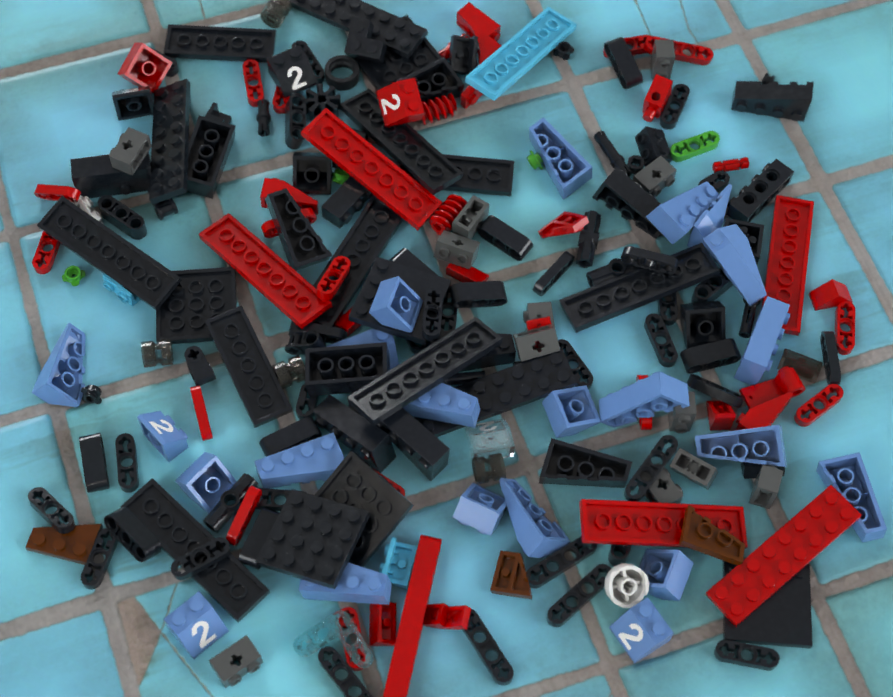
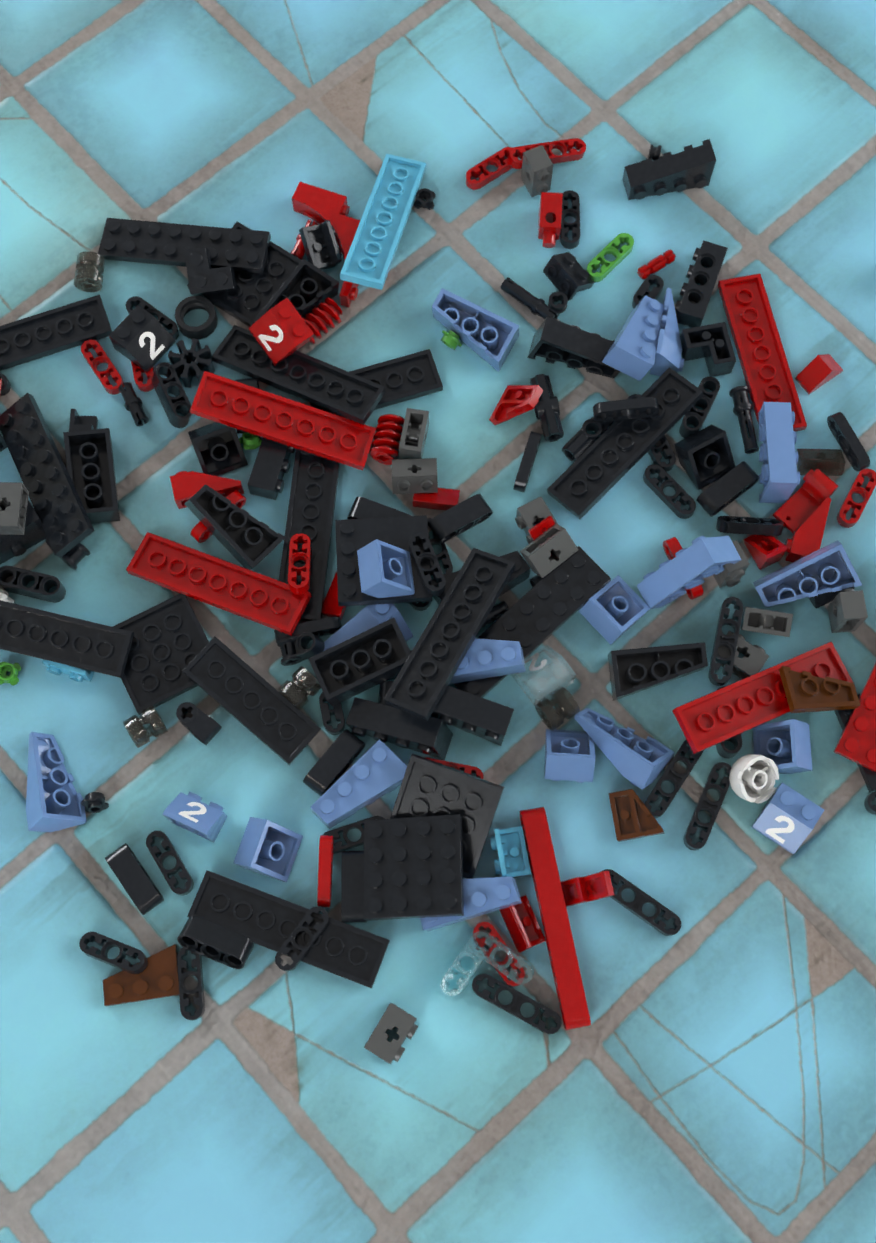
camera: 20 degrees left, 10 degrees up
(196, 625) = (330, 1012): medium blue slope -> none
(201, 412) = (224, 773): red beam -> none
(221, 512) = (300, 876): black piece -> none
(505, 238) = (458, 441): black beam -> none
(573, 356) = (608, 559): black beam -> none
(623, 63) = (496, 190): black beam -> none
(656, 176) = (586, 308): dark grey brick -> none
(734, 256) = (712, 372): medium blue wedge -> none
(850, 321) = (850, 392): red beam -> none

